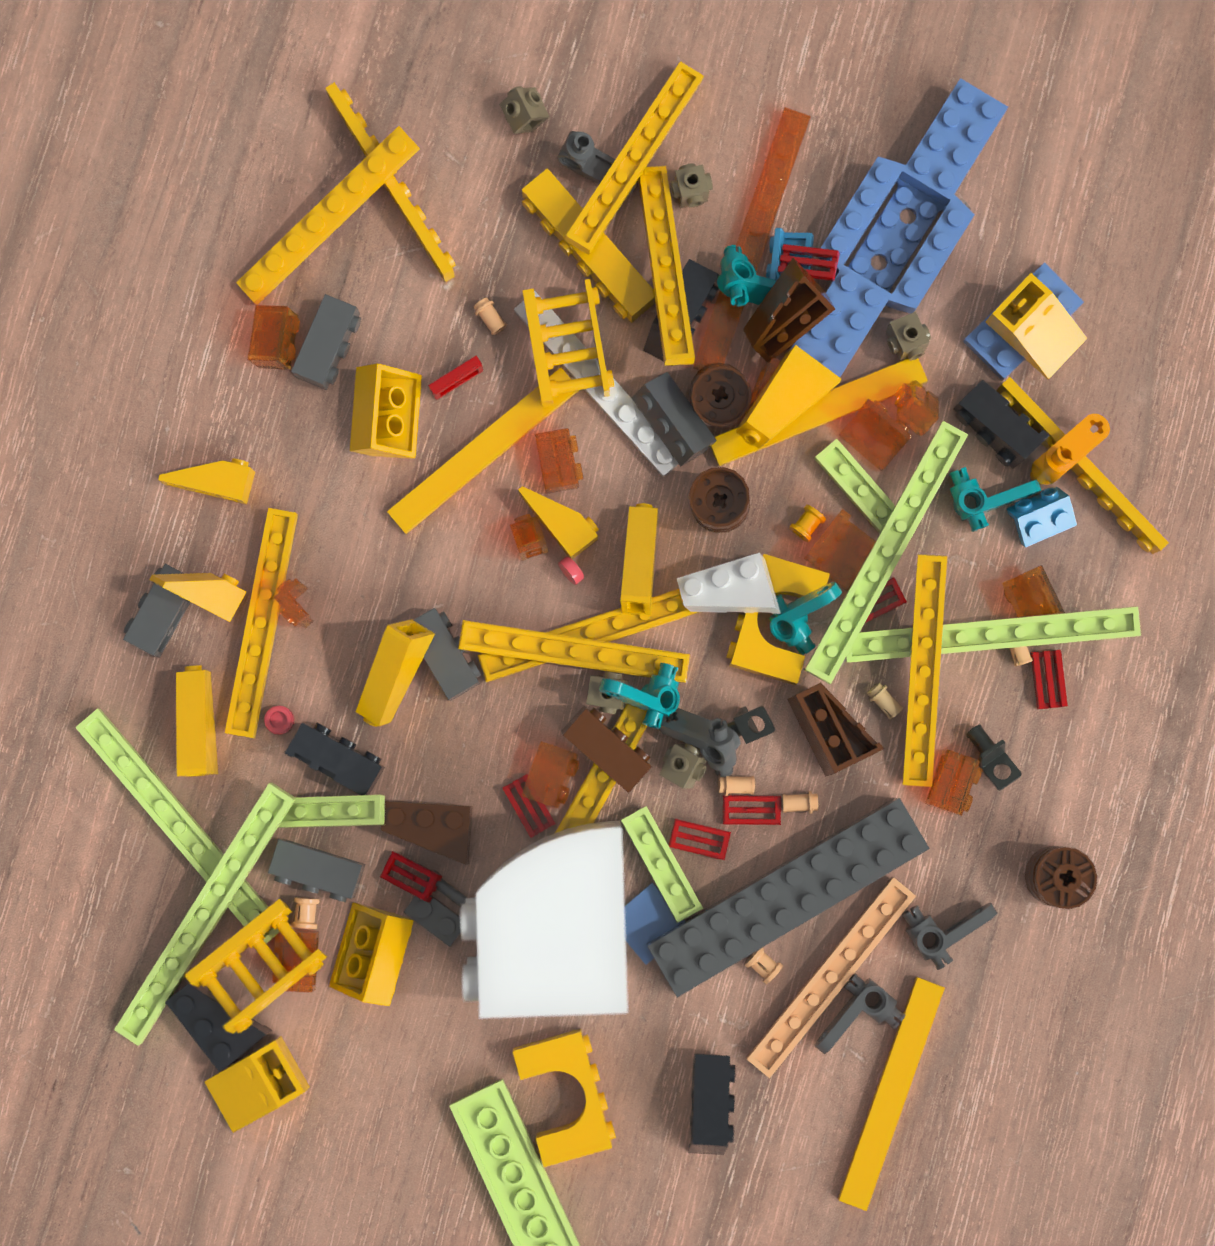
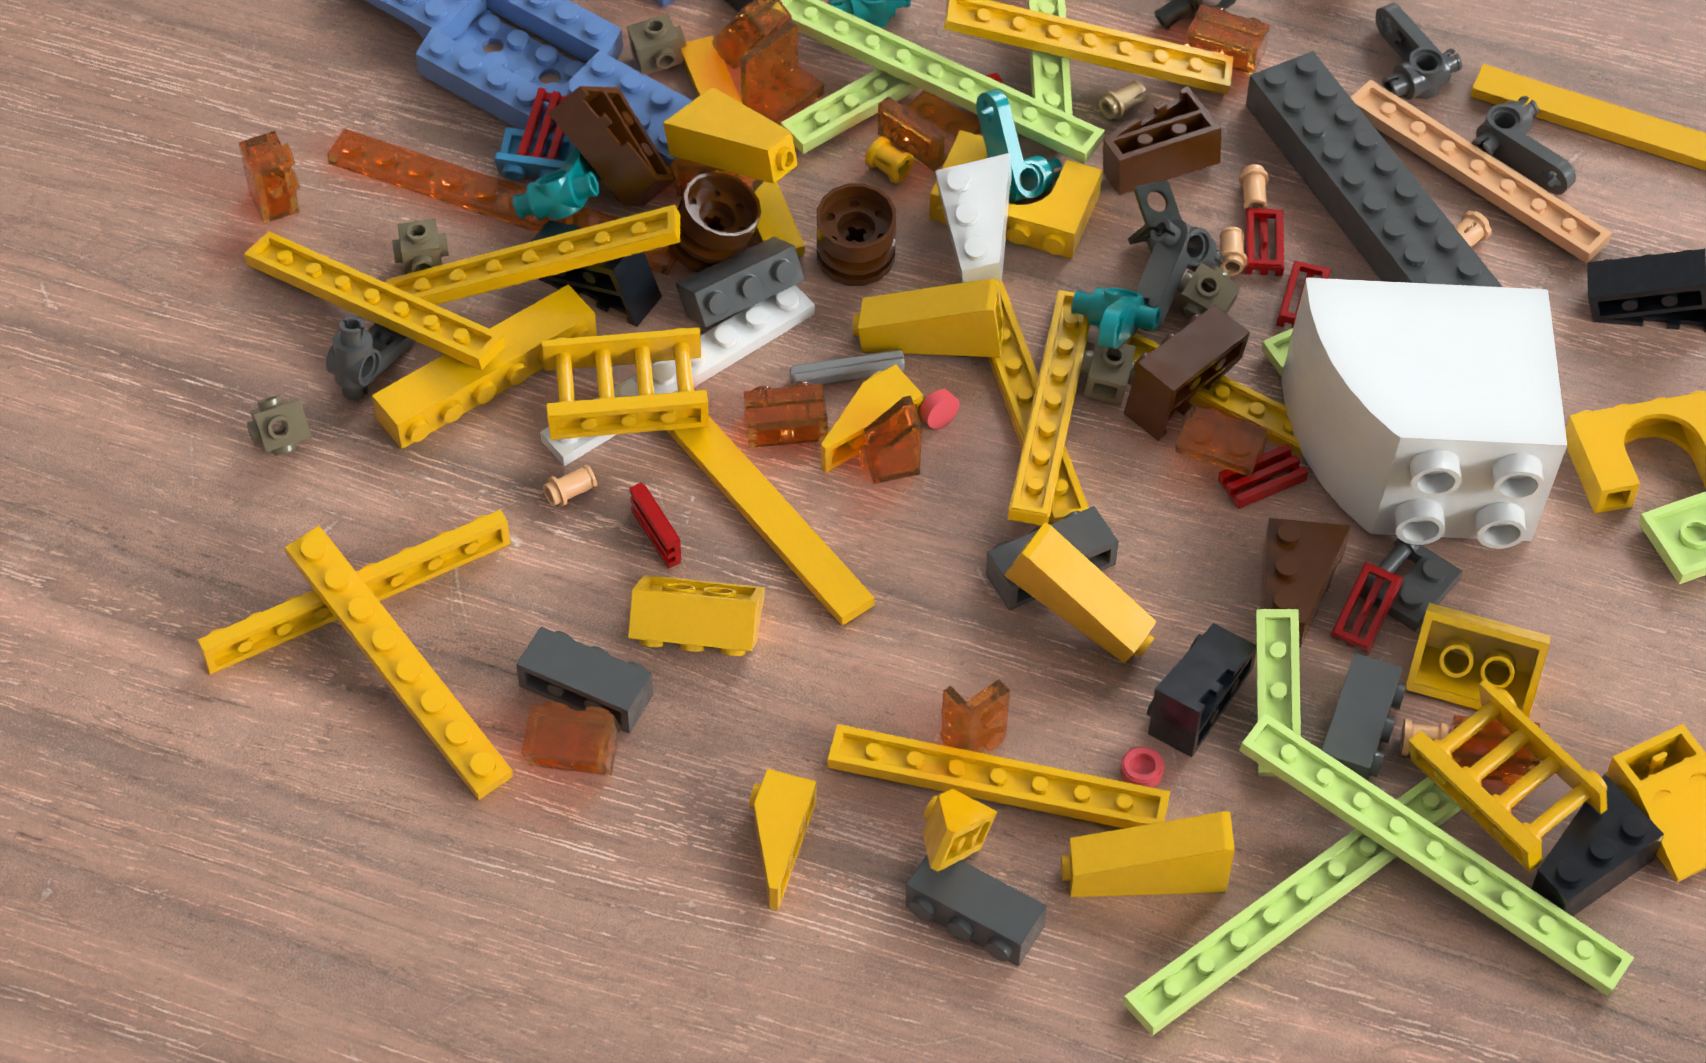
camera: 85 degrees left, 30 degrees down
(607, 503) = (846, 368): none -> light grey axle
(746, 66) = (270, 176): none -> clear orange brick

